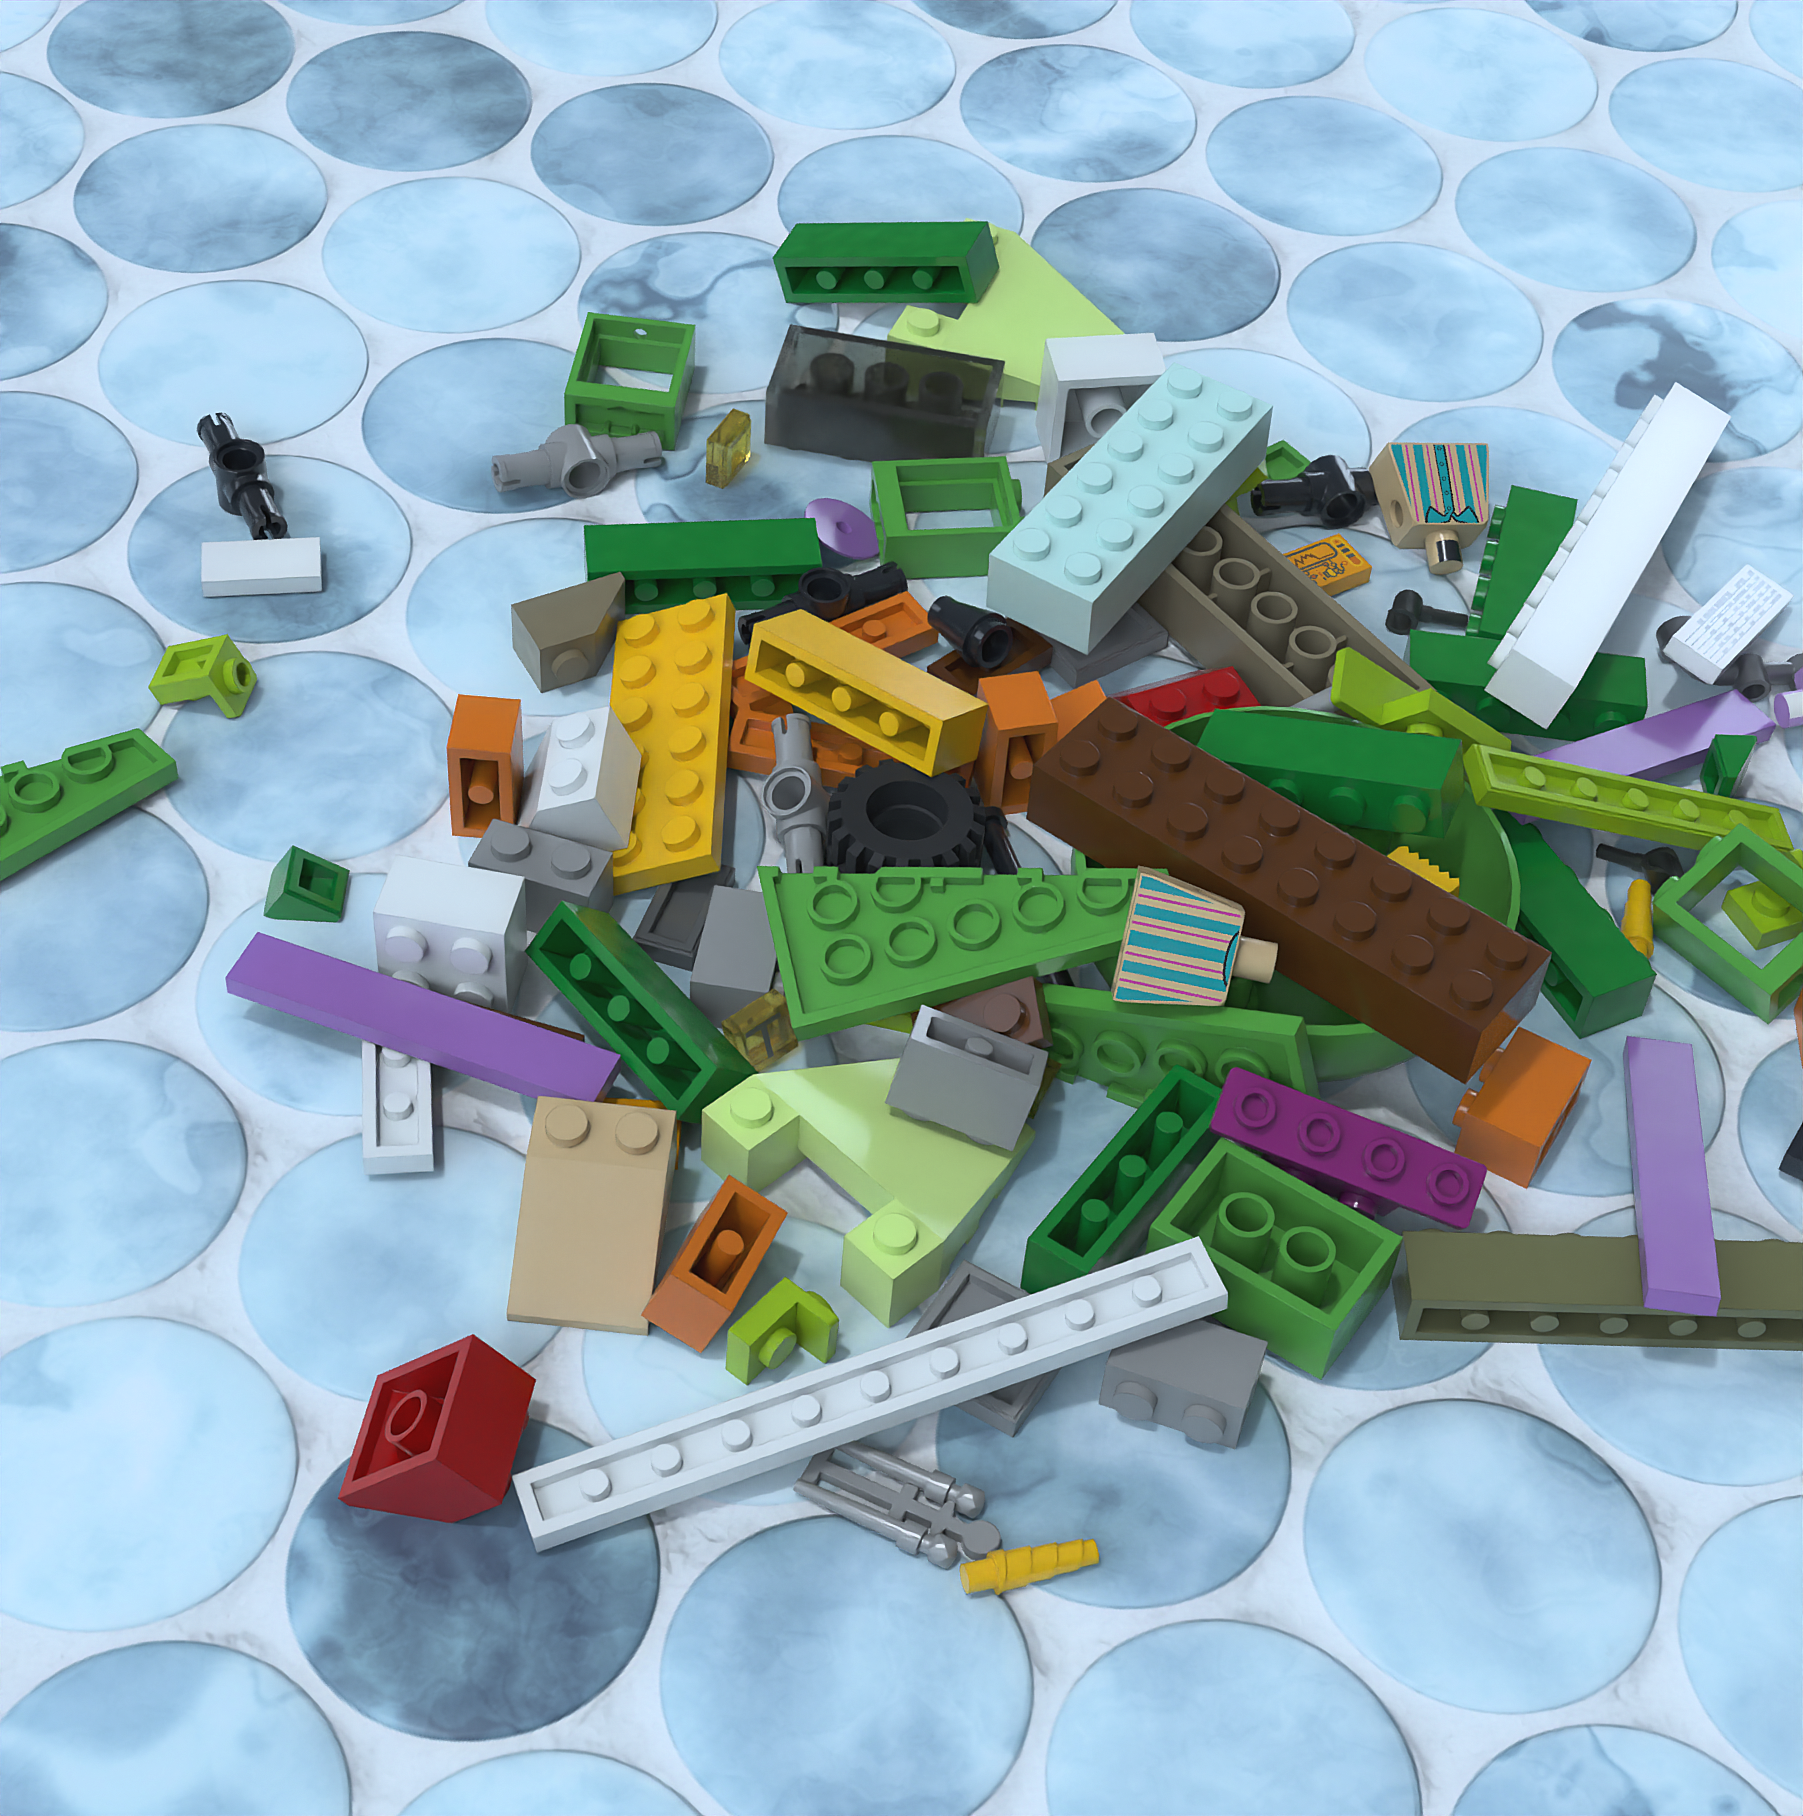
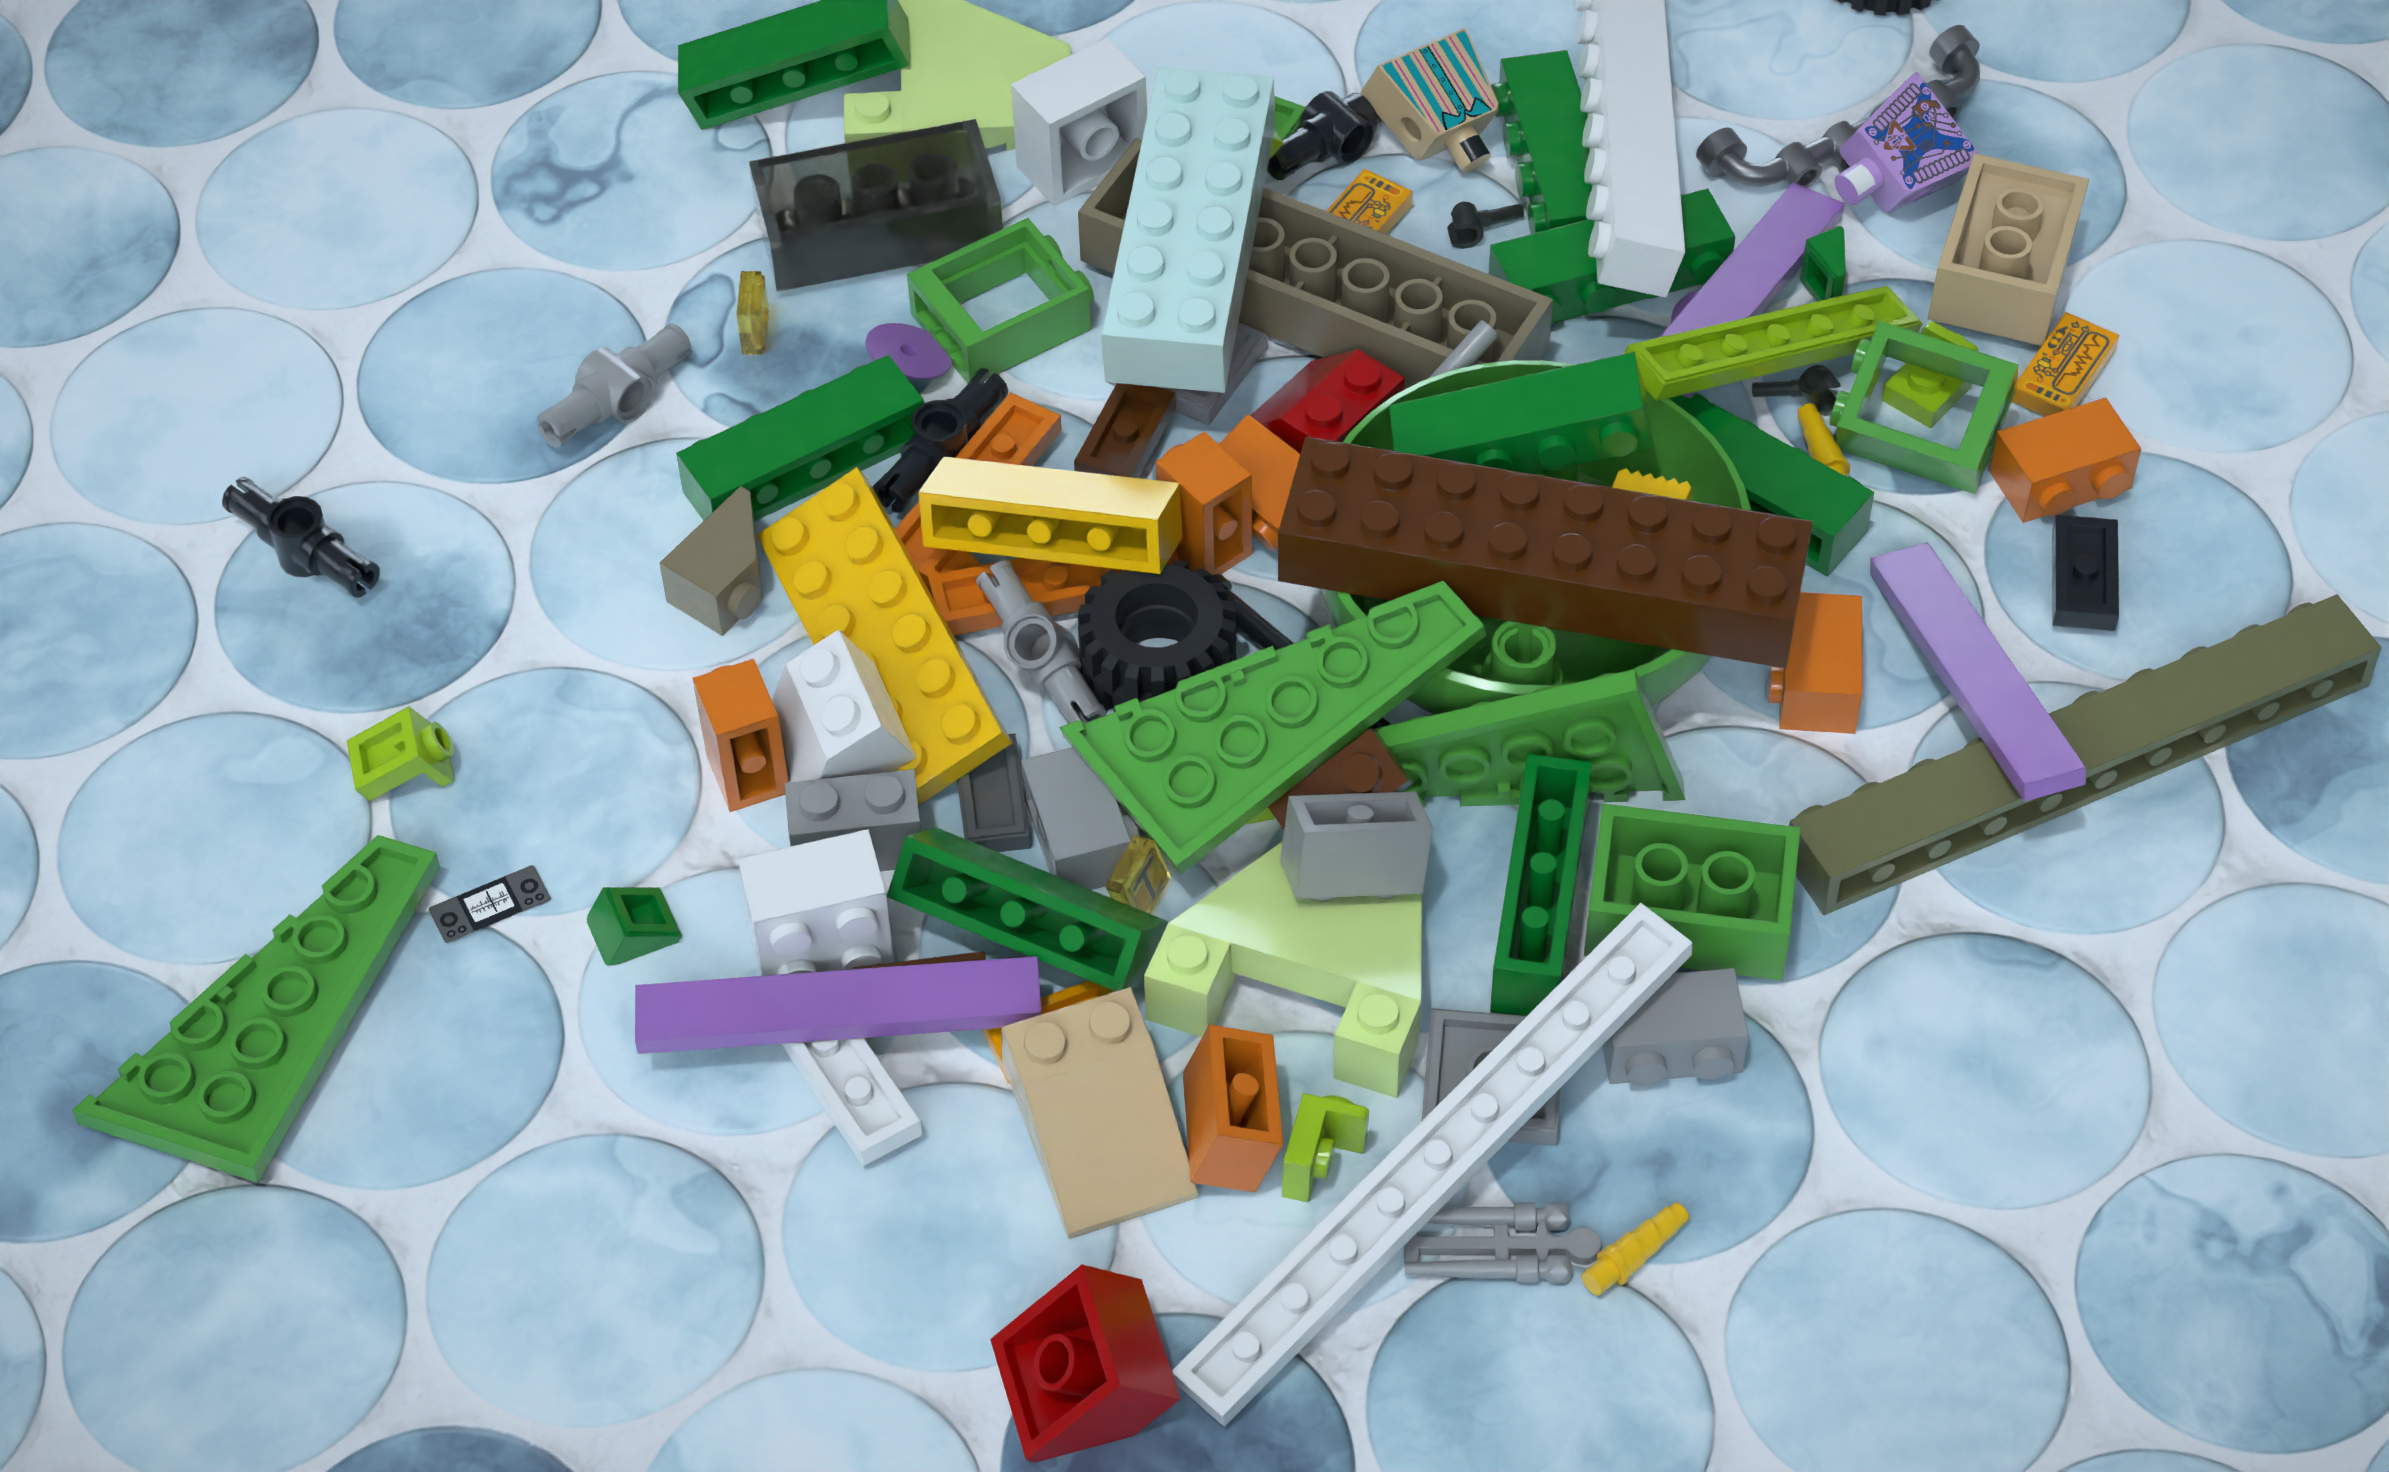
camera: 20 degrees left, 5 degrees up
(201, 825) = (489, 904): none -> sticker
(261, 567) = (376, 620): white tile -> none
(629, 410) = (624, 316): bright green window -> none
(973, 632) = (1103, 411): black cone -> none
(1185, 945) = (1498, 647): torso -> none
(1346, 1153) = (1710, 771): magenta bracket -> none
(1391, 704) = (1538, 334): lime bracket -> none
(1727, 624) = (1760, 123): white tile -> none

